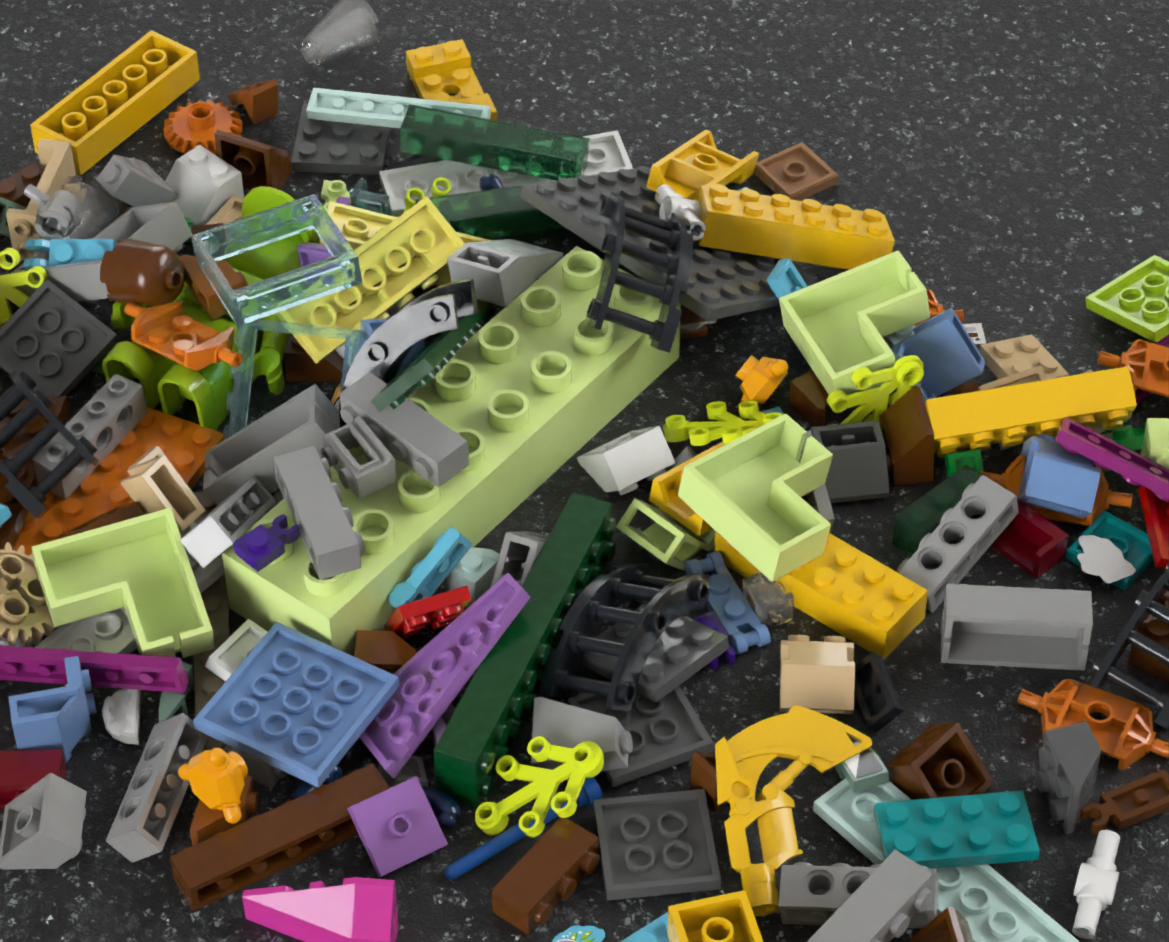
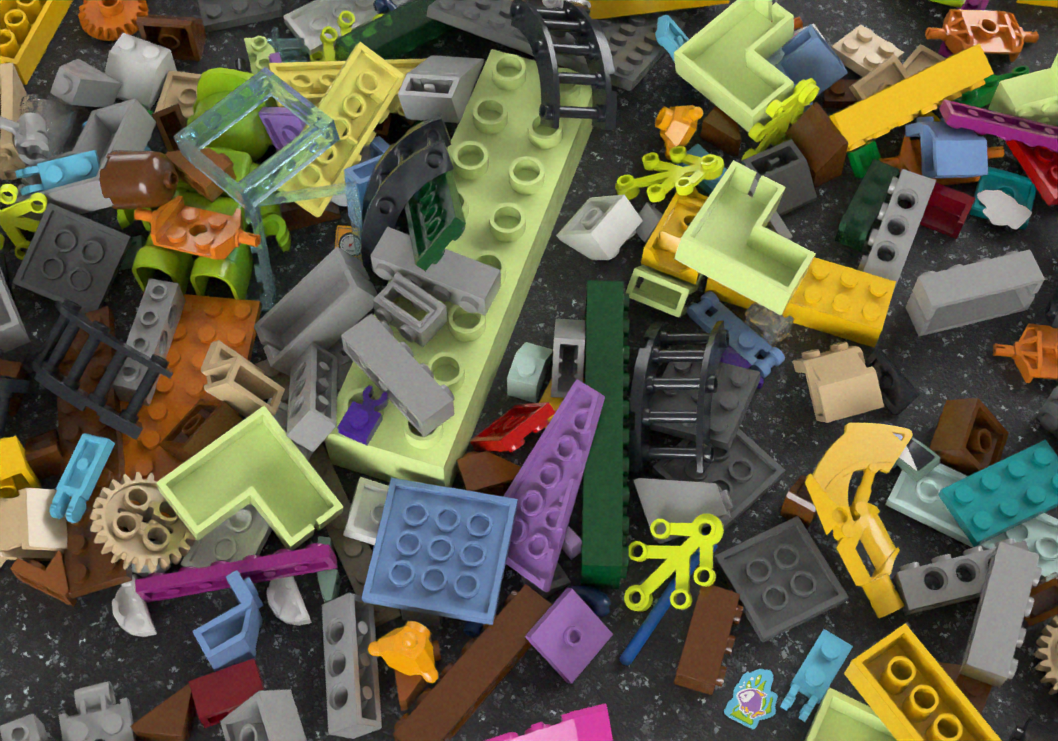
camera: 20 degrees left, 15 degrees up
(433, 570) = (496, 389): medium azure hinge -> none

